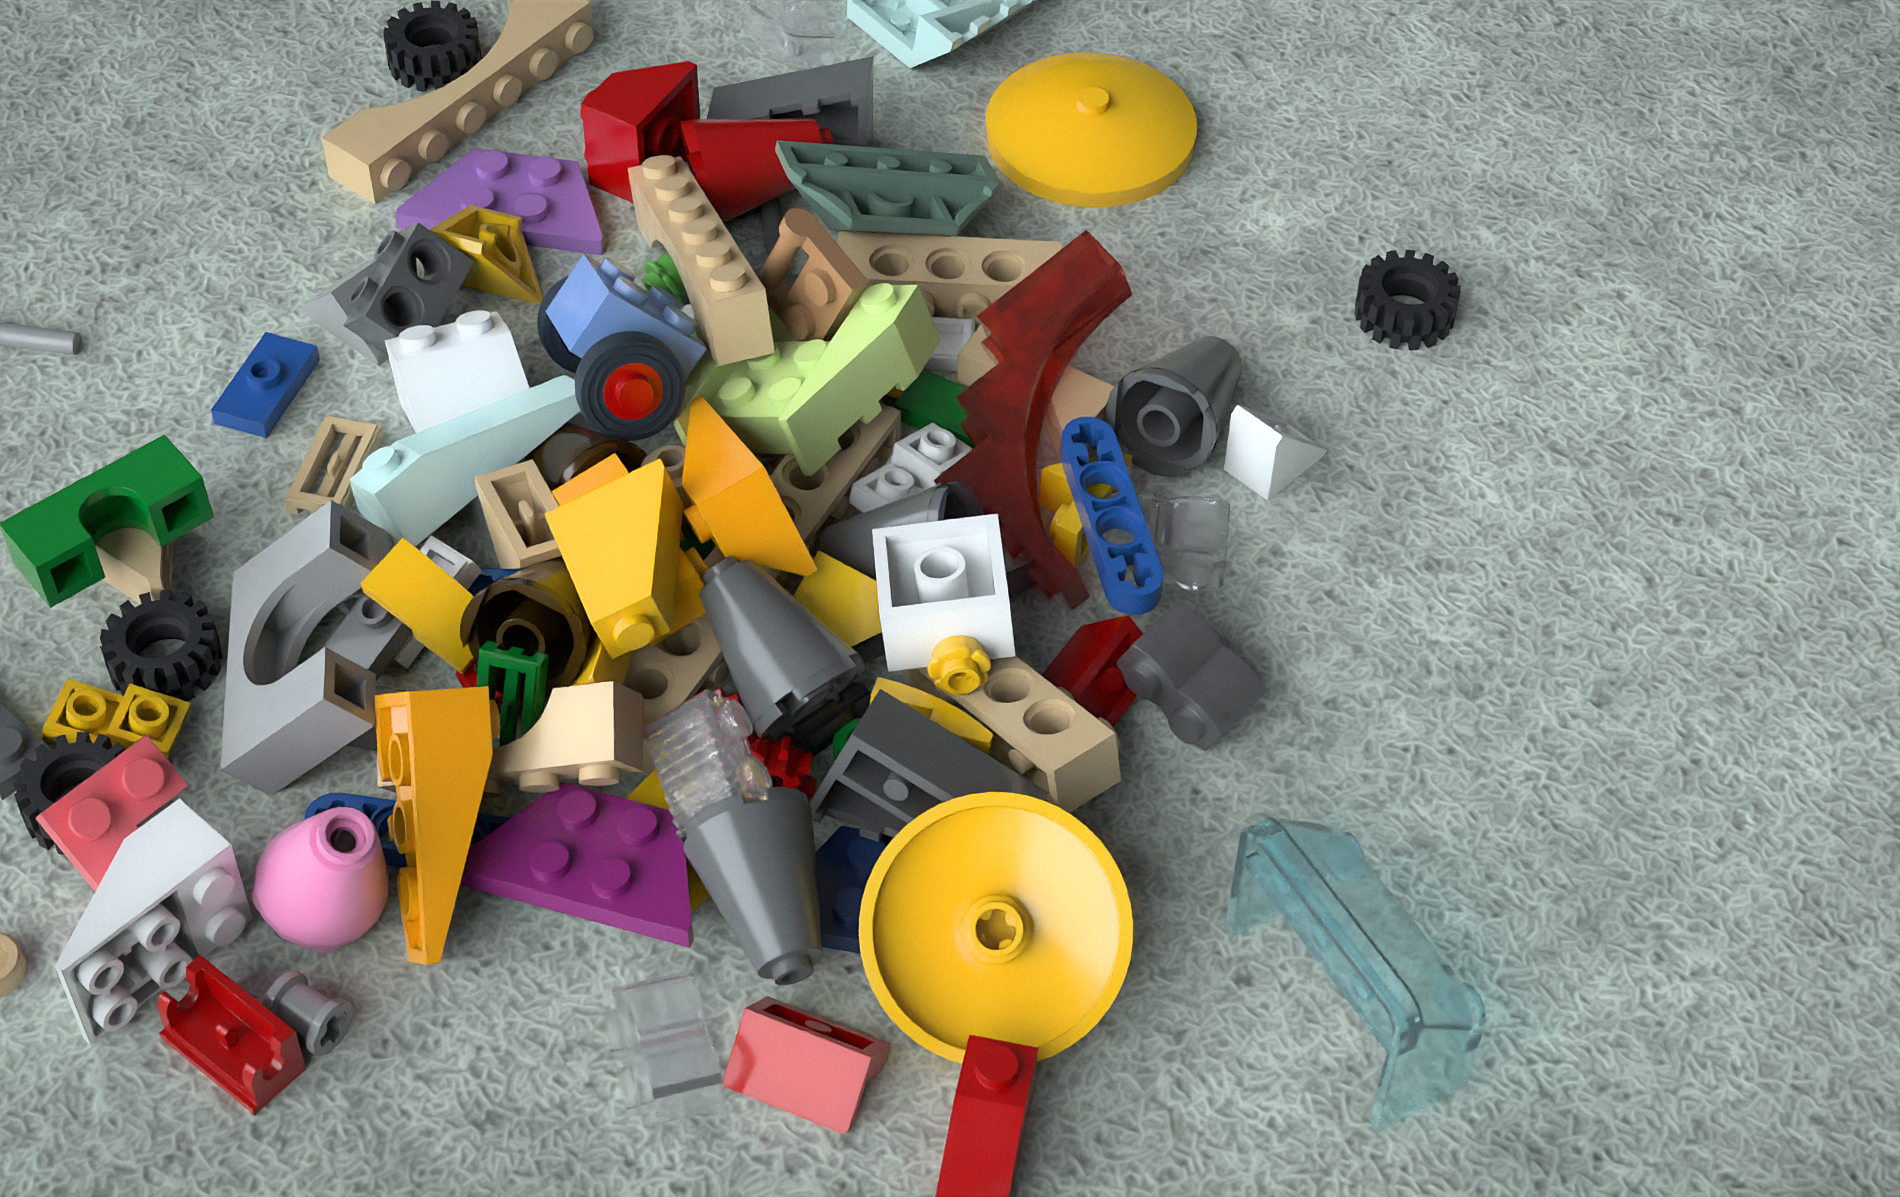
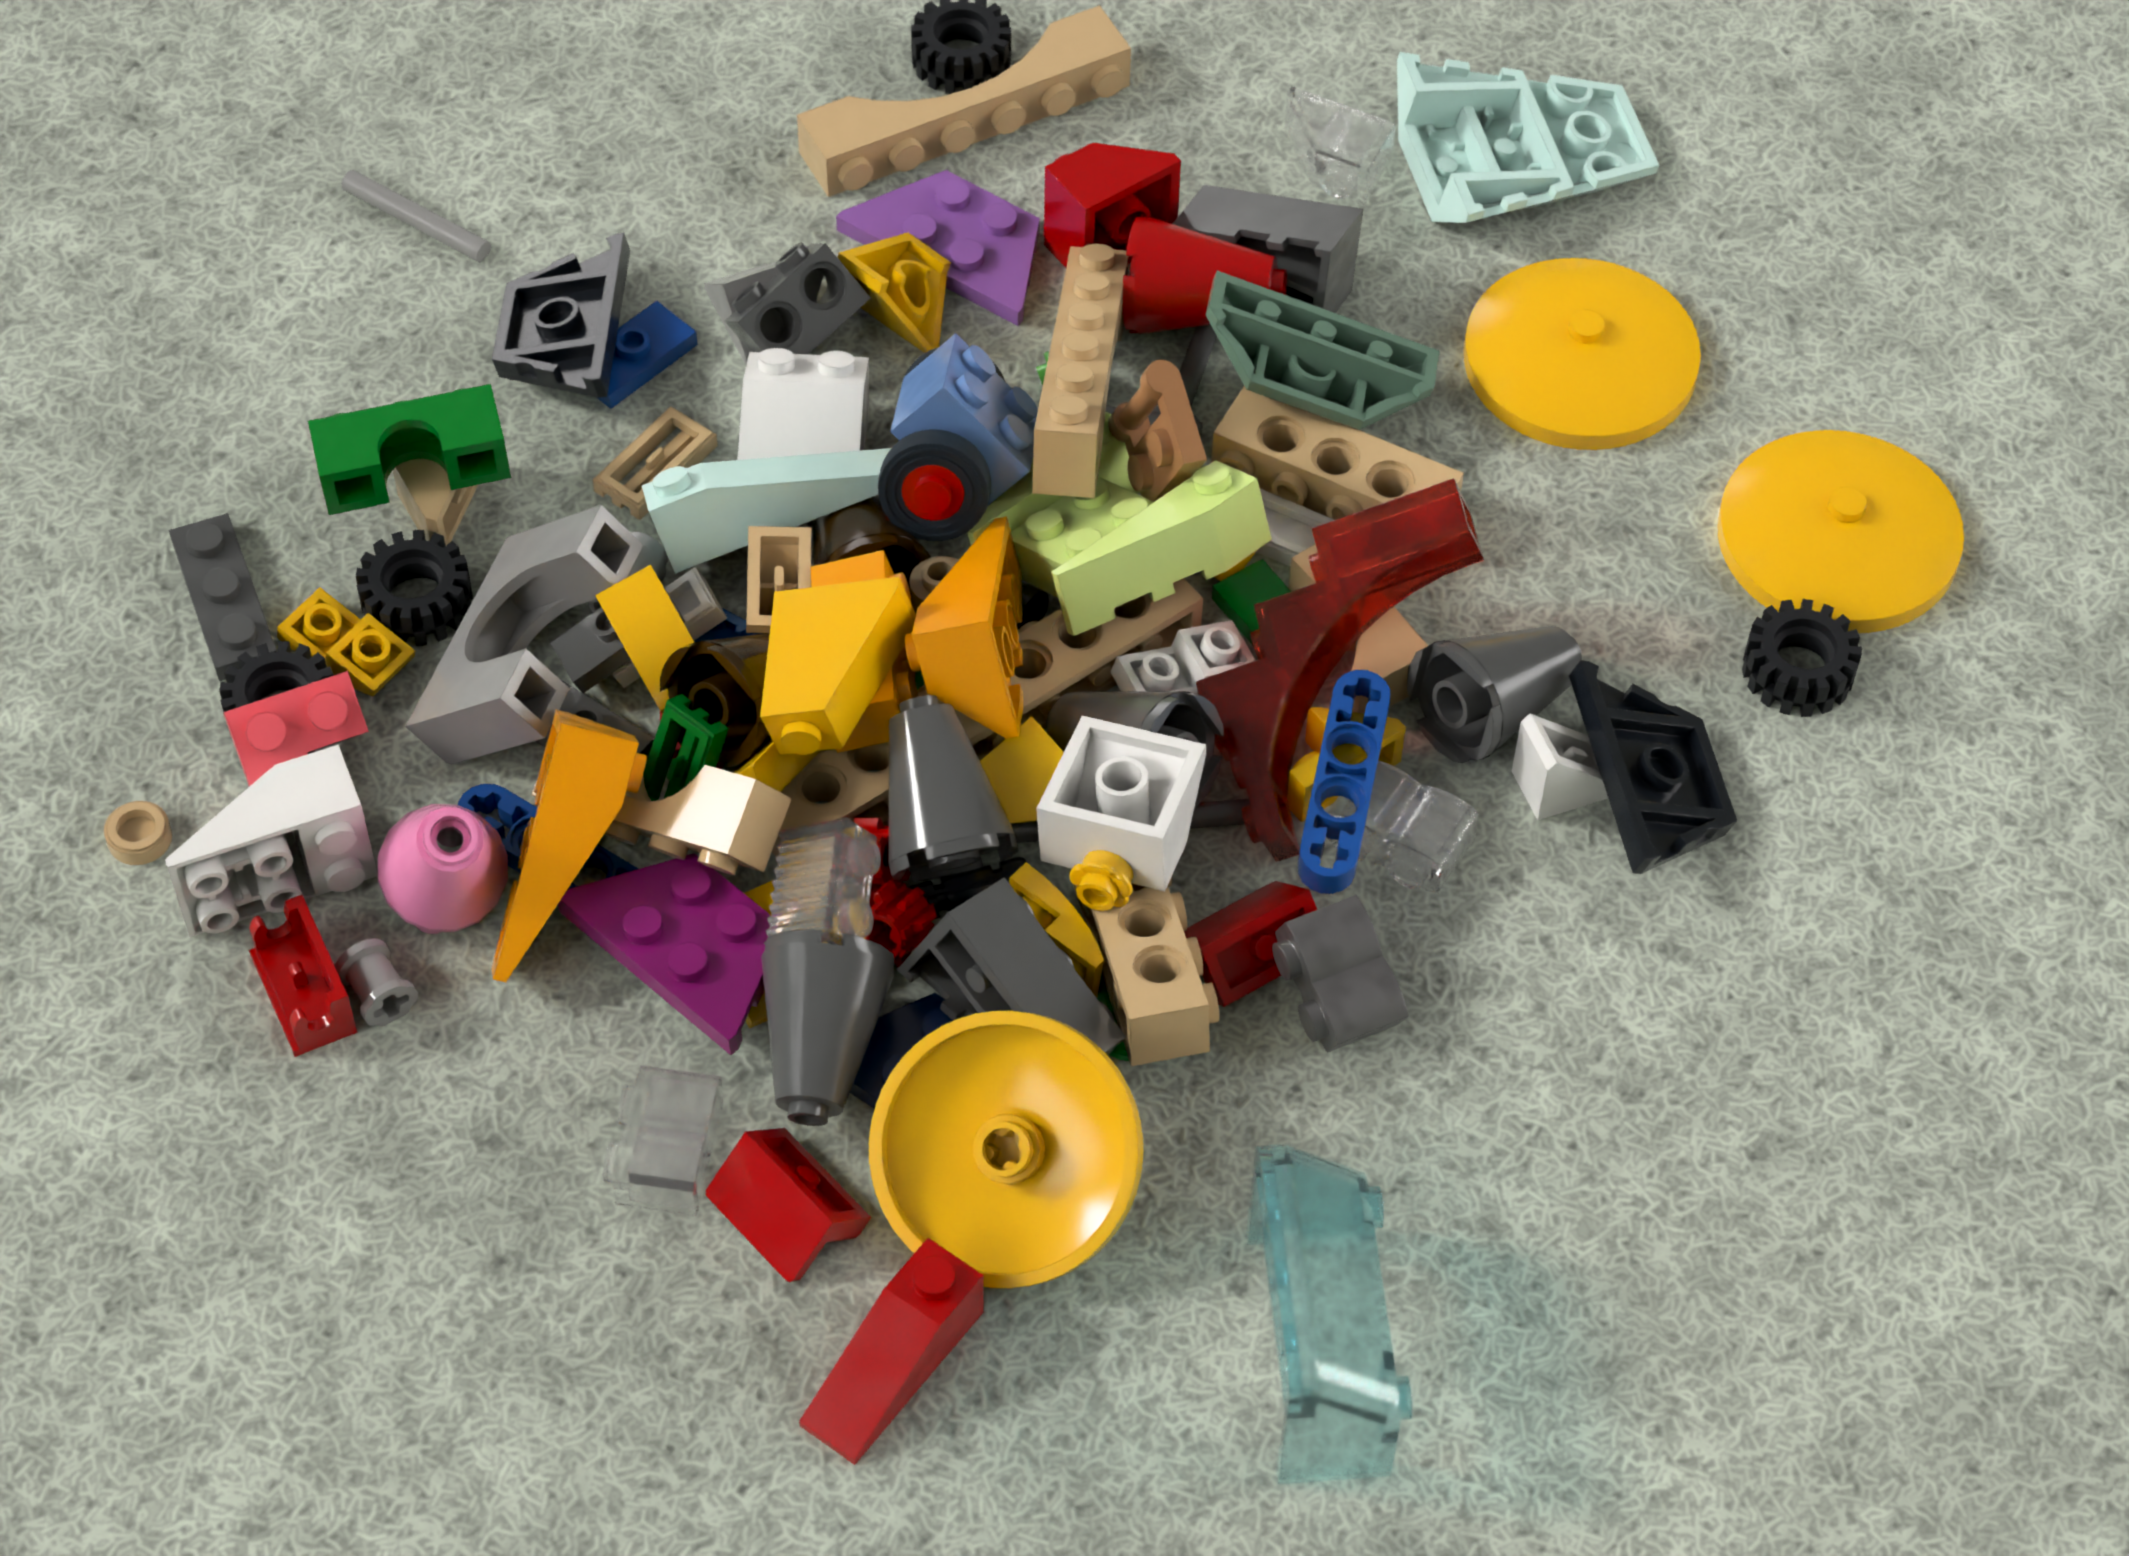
camera: 25 degrees right, 5 degrees up
(191, 375) = (564, 322): none -> black wing
(1347, 421) = (1653, 770): none -> black wing
(1372, 190) = (1841, 526): none -> yellow dish

